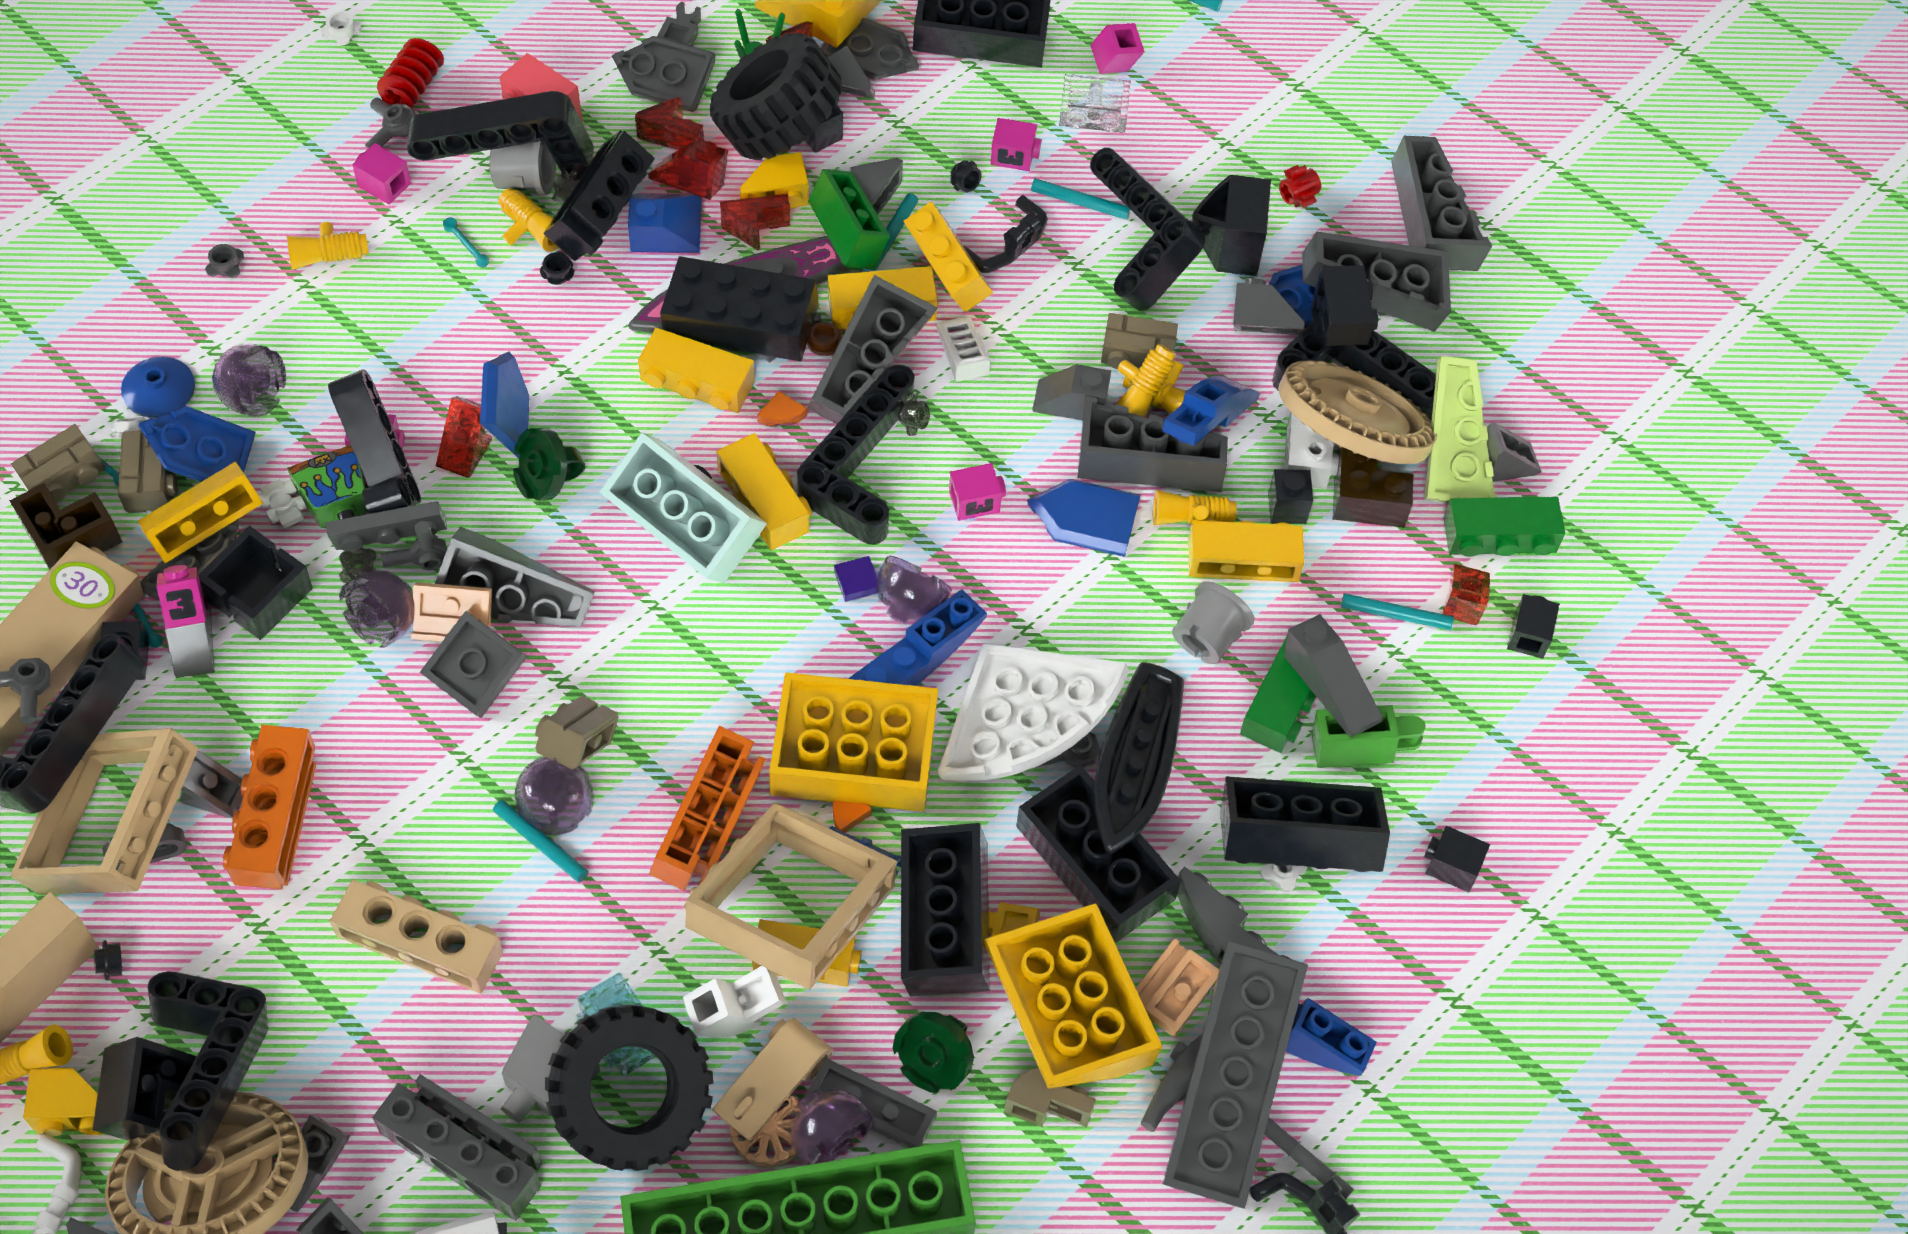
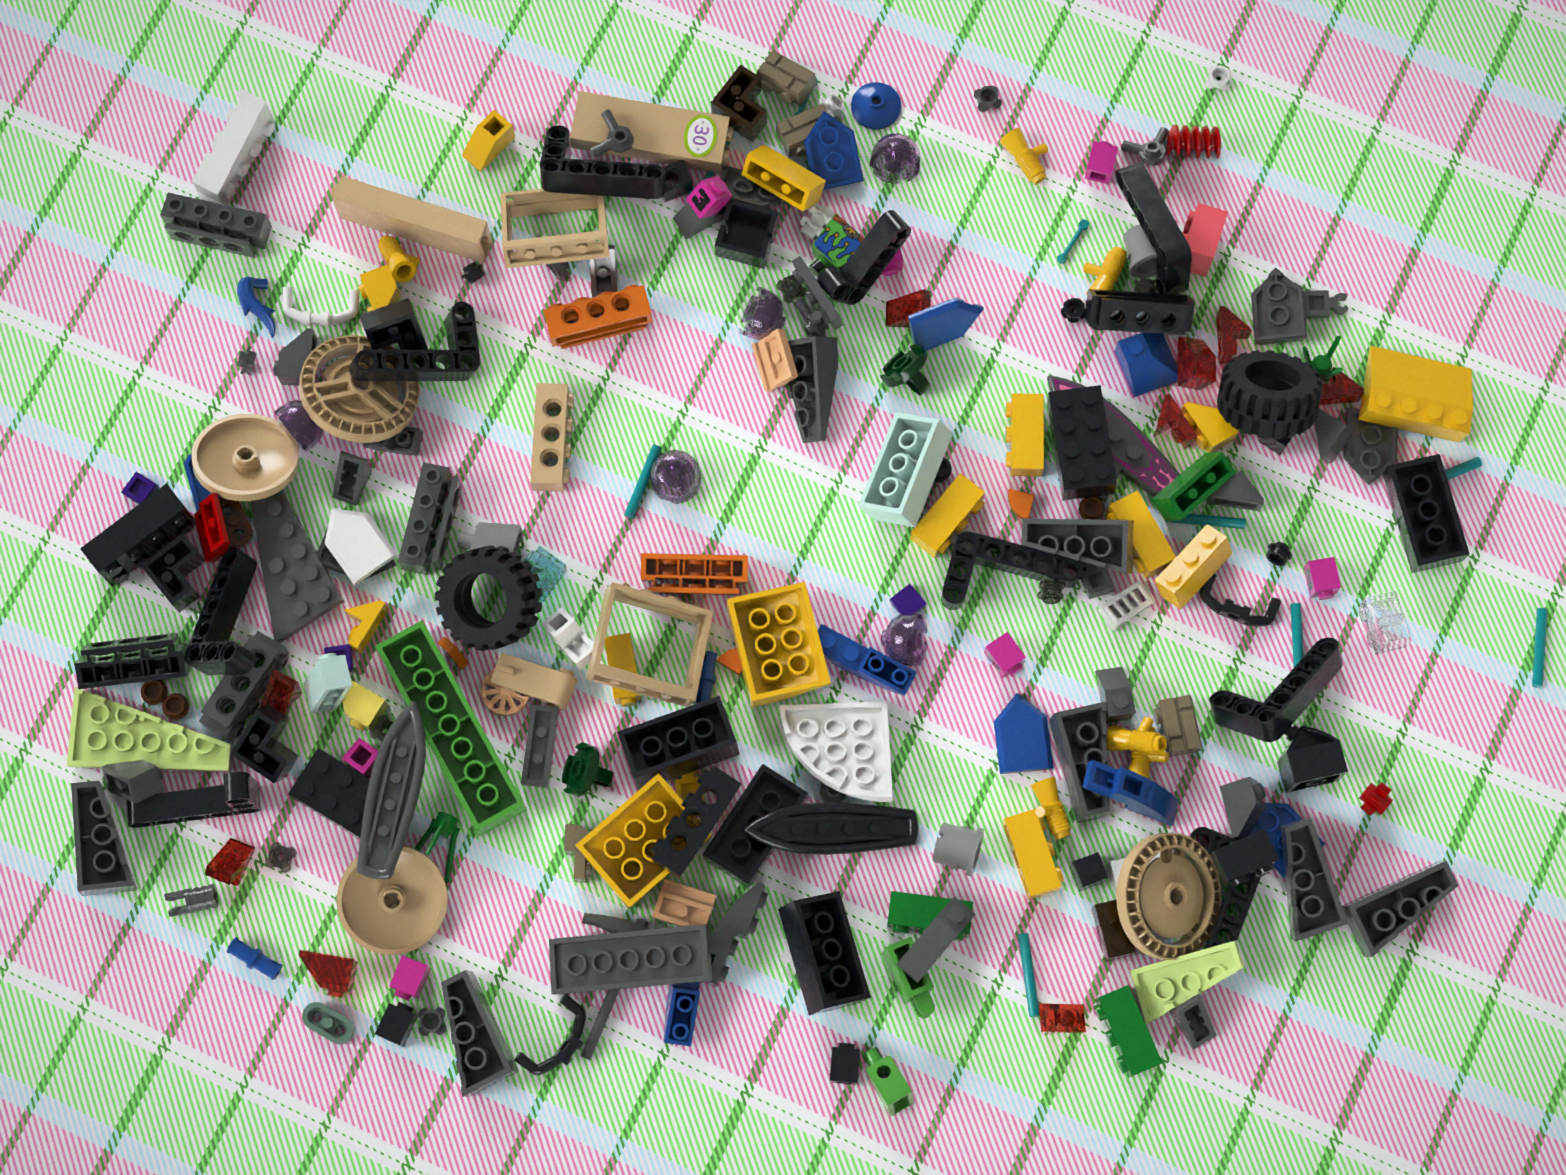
camera: 75 degrees right, 15 degrees up
(473, 664) = (743, 389): dark grey plate -> none
(575, 732) = (715, 470): dark tan brick -> none
(682, 1176) = (453, 652): none -> orange tile
(828, 1125) = (511, 722): clear purple cylinder -> none
(923, 361) = (1096, 580): none -> dark grey plate
(1079, 904) = (710, 781): none -> black brick
(1117, 48) = (1445, 621): dark pink brick -> none
(1498, 808) = (893, 1090): none -> bright green torso
(1533, 626) = (1052, 1073): black brick -> none

